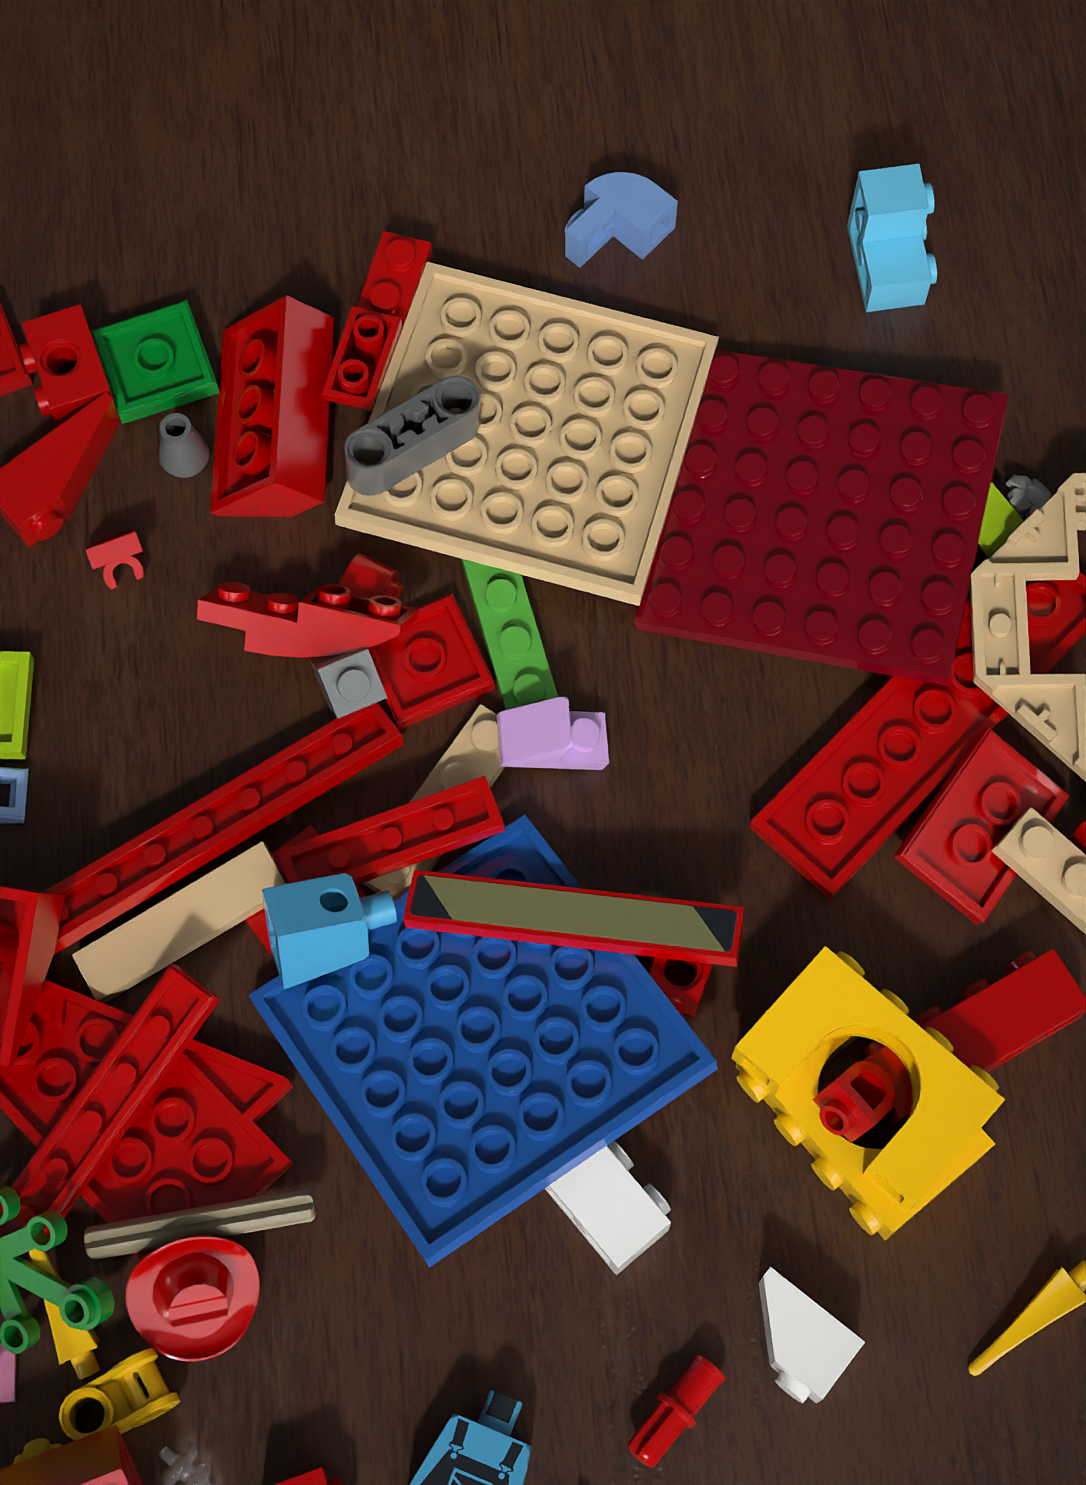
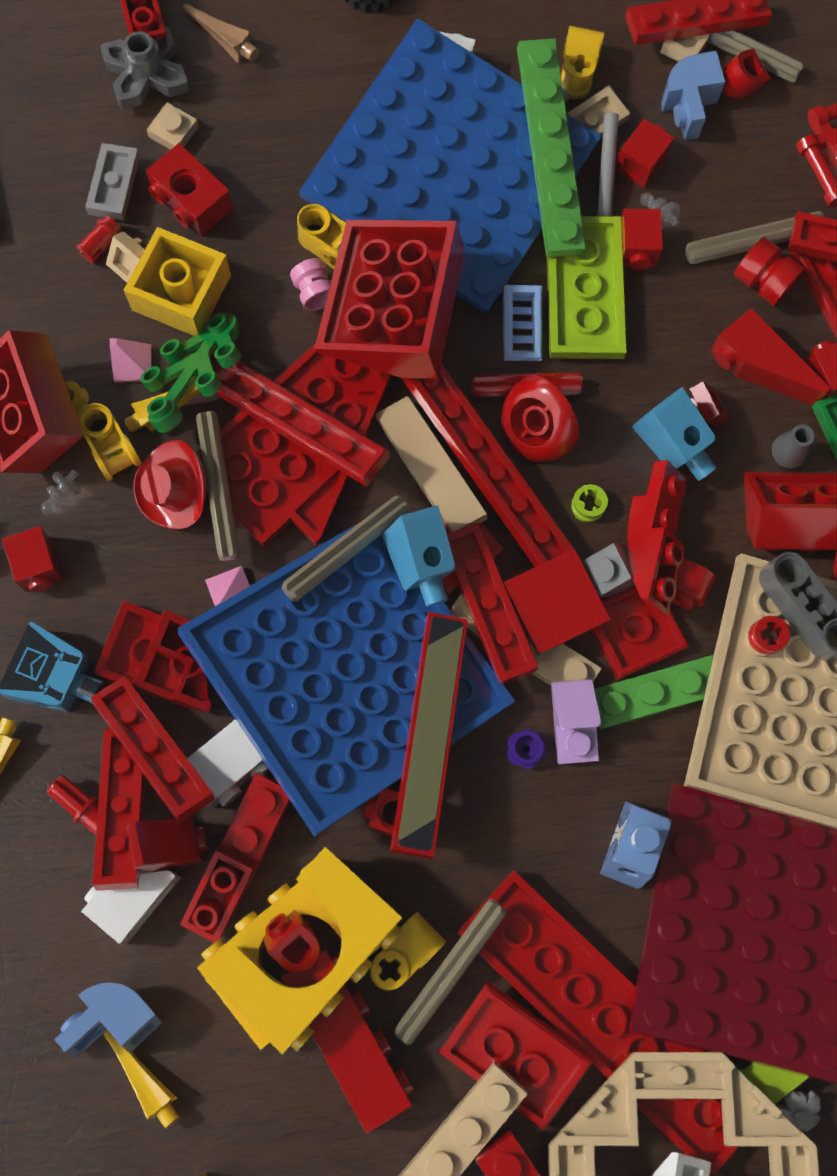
camera: 85 degrees right, 5 degrees up
(64, 791) = (500, 384): none -> red axle
(124, 771) = (538, 420): none -> red hat
(156, 589) = (678, 434): none -> dark azure torso
(251, 726) = (578, 506): none -> lime bush
(307, 1034) = (344, 548): none -> dark tan axle
(354, 1212) = (227, 584): none -> bright pink slope
(392, 751) = (556, 601): none -> red tile
(451, 1319) = (153, 658): none -> red slope
(461, 482) = (775, 623): none -> red bush
(590, 791) = (533, 741): none -> dark purple plate
(593, 1304) = (152, 749): none -> red plate
(677, 1349) = (119, 804): none -> red plate
(715, 667) = (636, 845): none -> medium blue torso
(729, 1275) = (166, 844): none -> red slope
(741, 1186) = (237, 858): none -> red slope
(858, 940) = (410, 950): none -> yellow piece
(883, 902) = (450, 971): none -> dark tan axle
(949, 1348) = (111, 1009): none -> medium blue brick

